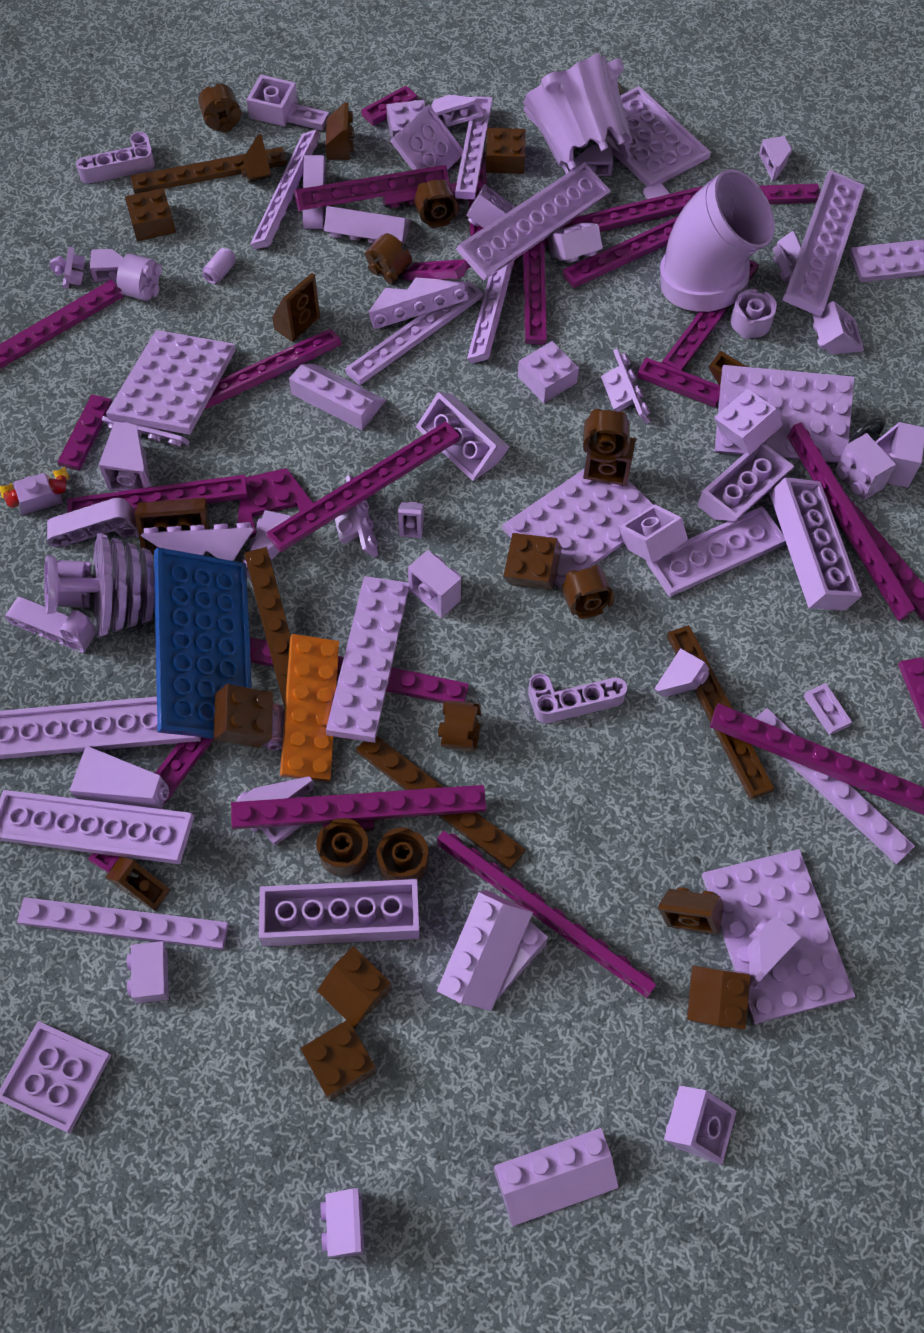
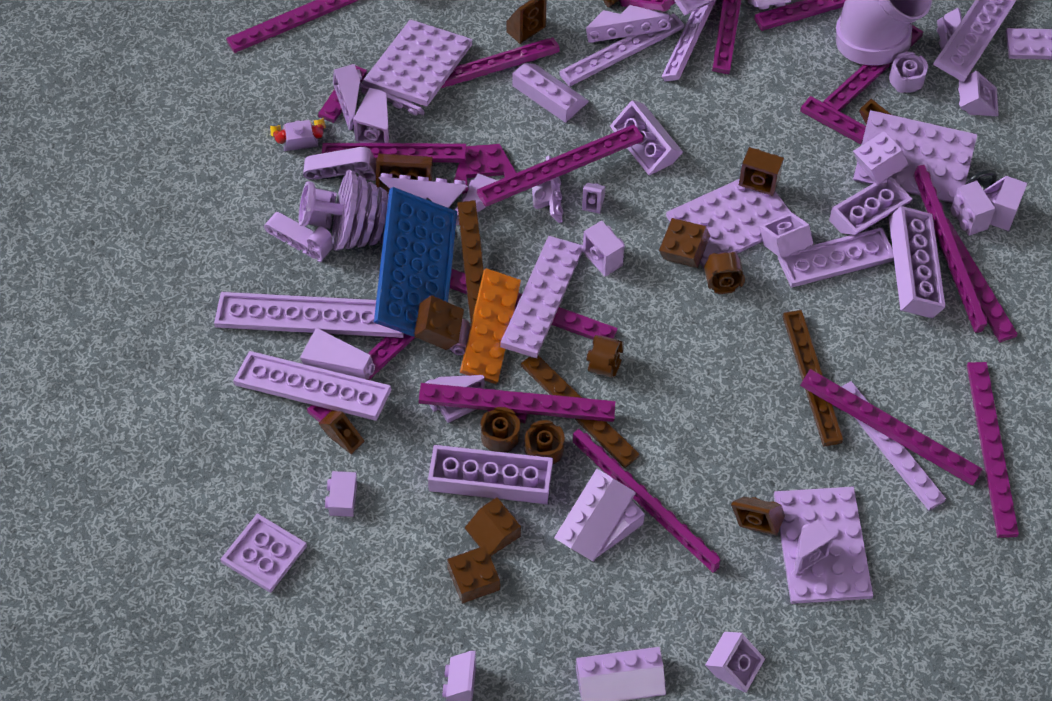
camera: 10 degrees right, 5 degrees down
(87, 420) = (346, 84): none -> lavender slope
(123, 923) = (326, 458): lavender plate -> none
(548, 372) = (726, 96): lavender brick -> none
(606, 435) = (758, 151): reddish brown brick -> none
(608, 694) = (730, 347): lavender beam -> none
(622, 387) = (786, 118): lavender bracket -> none
(682, 675) = (787, 345): lavender slope -> none
(718, 997) = (766, 576): reddish brown slope -> none
(827, 709) = (900, 389): lavender plate -> none

